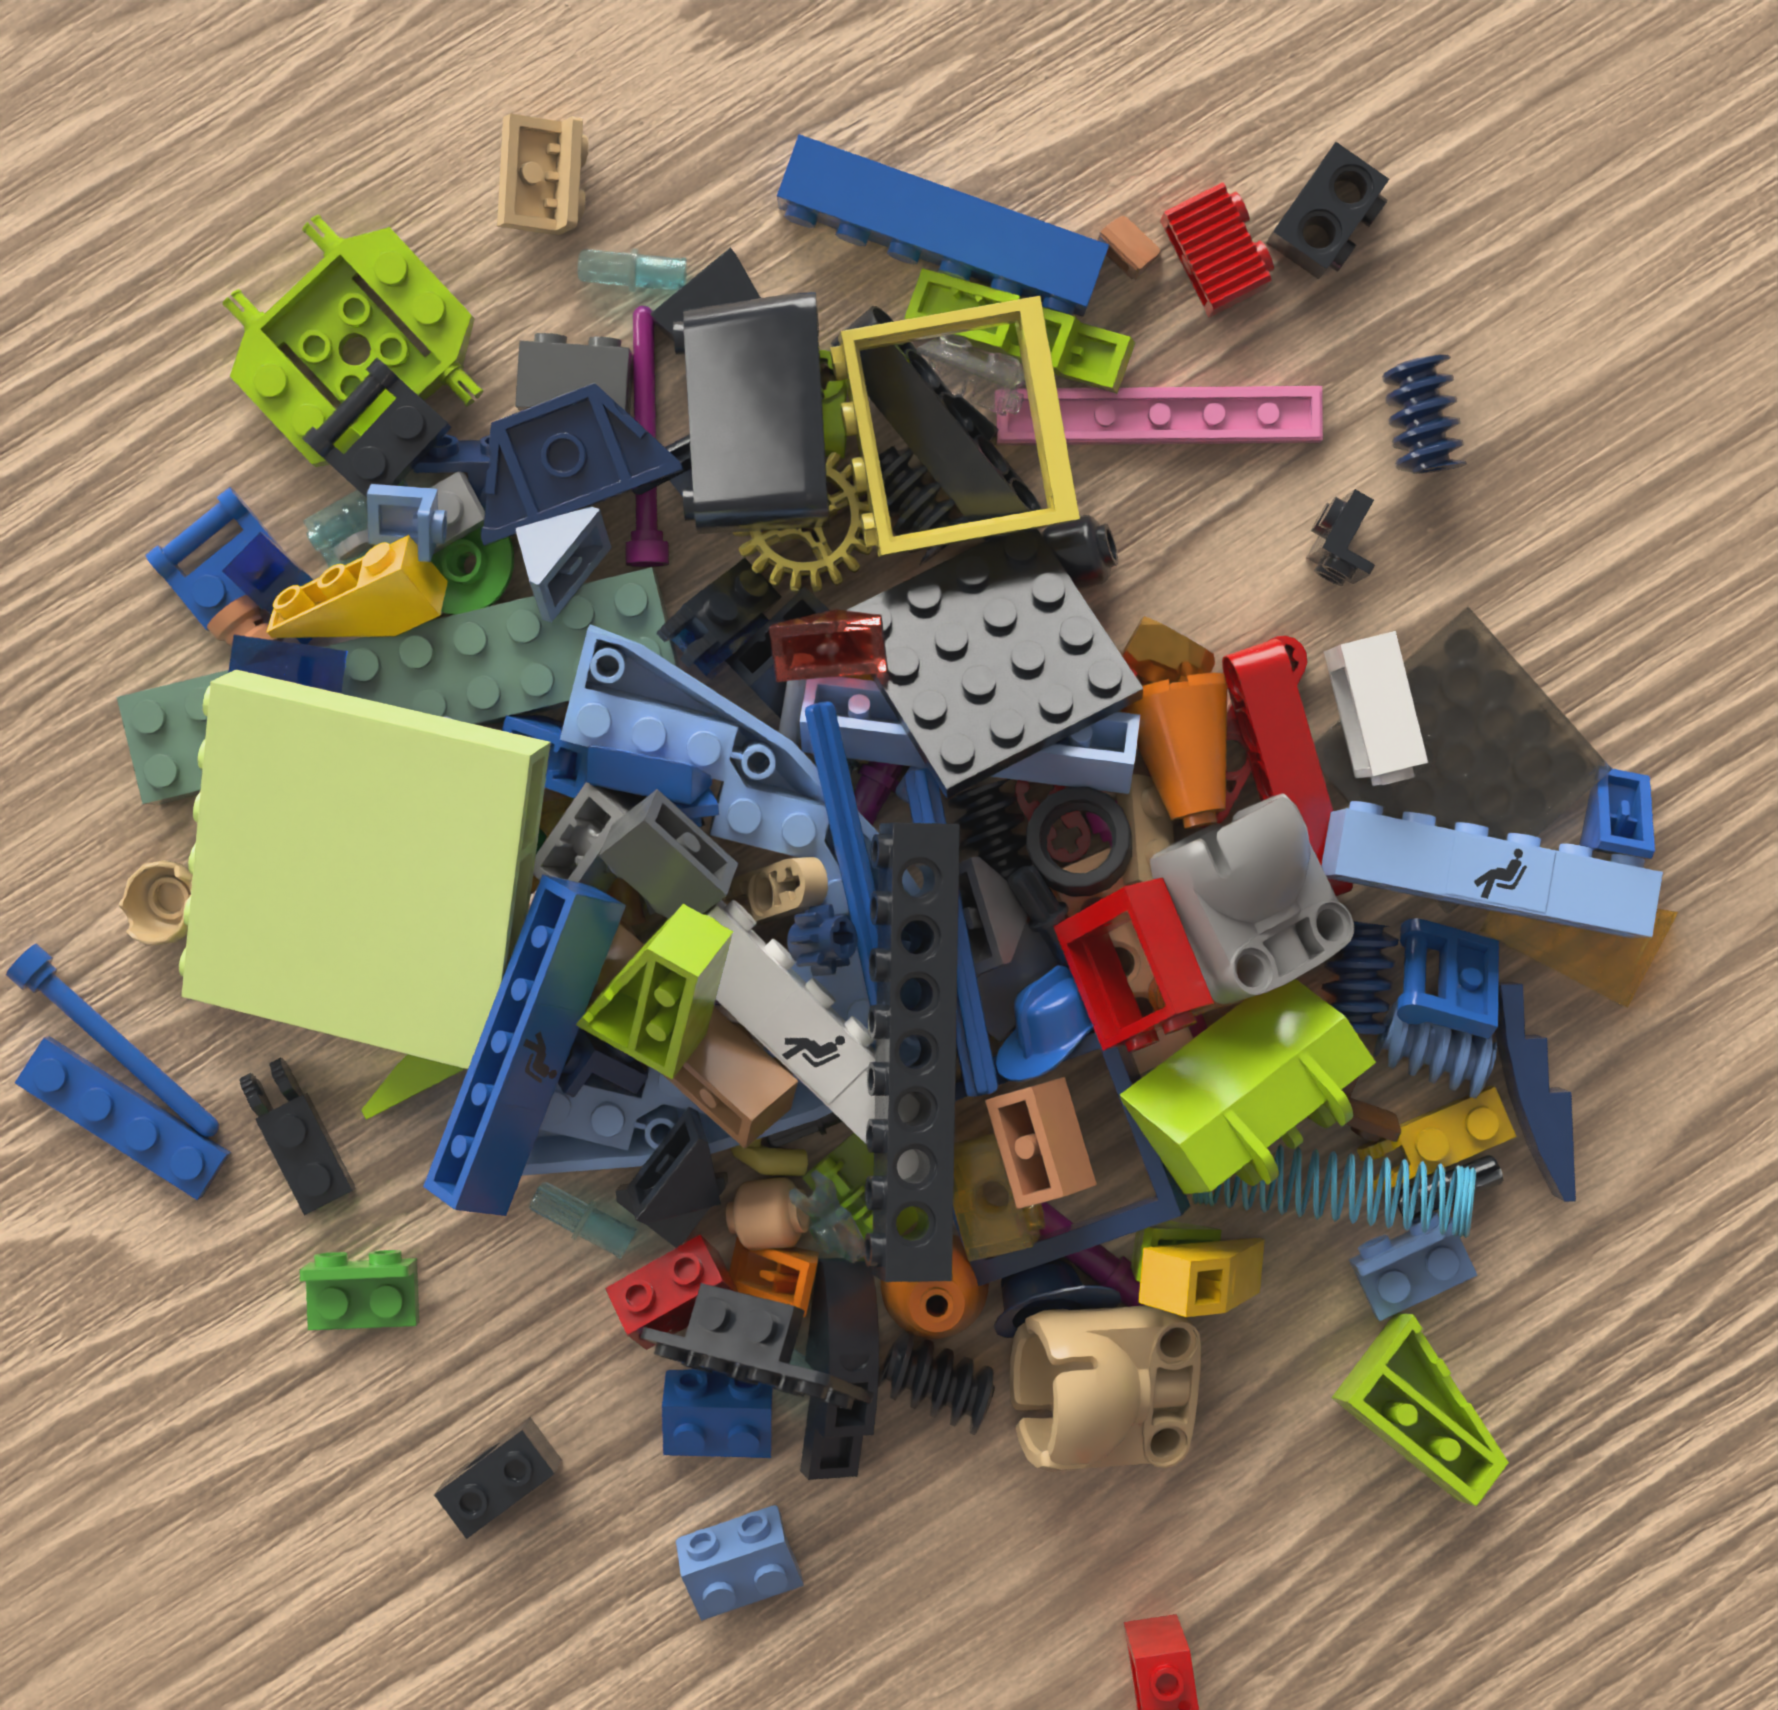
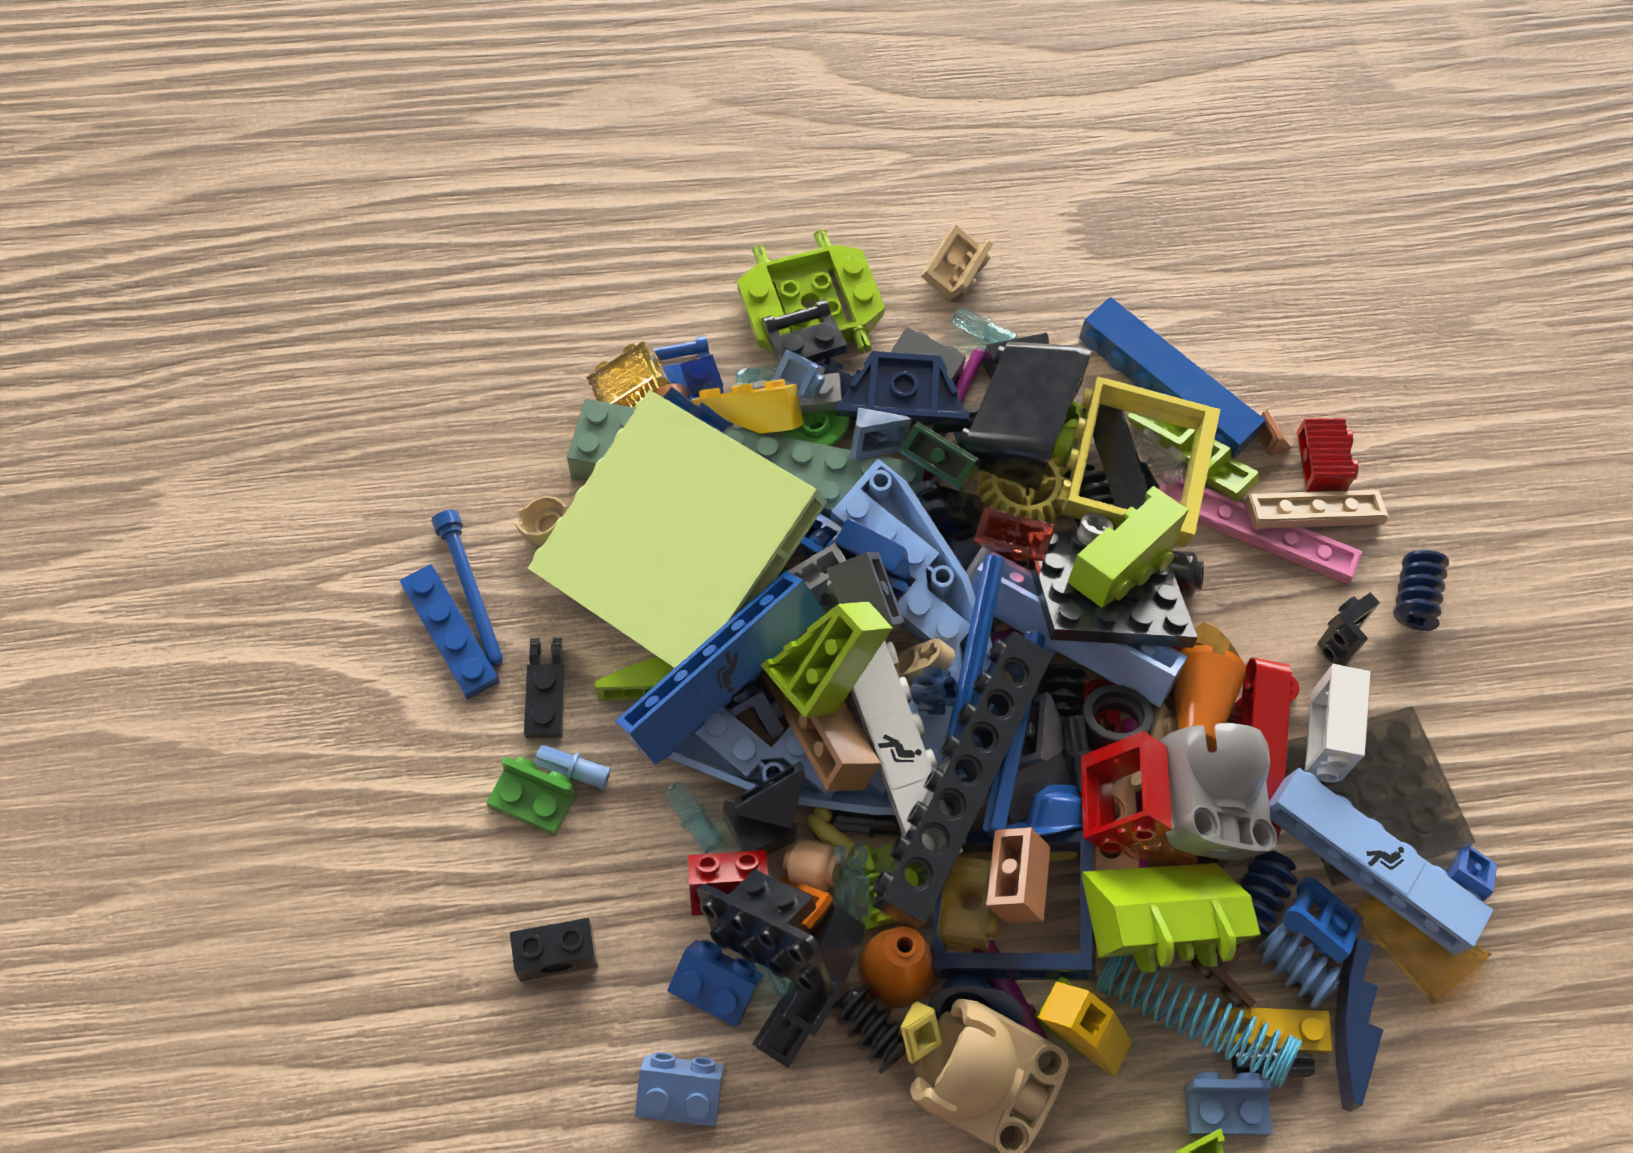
camera: 20 degrees right, 25 degrees down
(157, 624) = (628, 376): none -> clear yellow brick
(392, 1229) = (572, 766): none -> light blue axle
(670, 562) = (940, 456): none -> dark green brick
(931, 588) = (1092, 526): none -> light grey bush
(999, 1374) = (920, 1032): none -> light yellow slope
(1000, 611) = (1131, 552): none -> lime wedge
(1233, 349) = (1316, 509): none -> tan tile
(1320, 206) = (1398, 459): black brick -> none

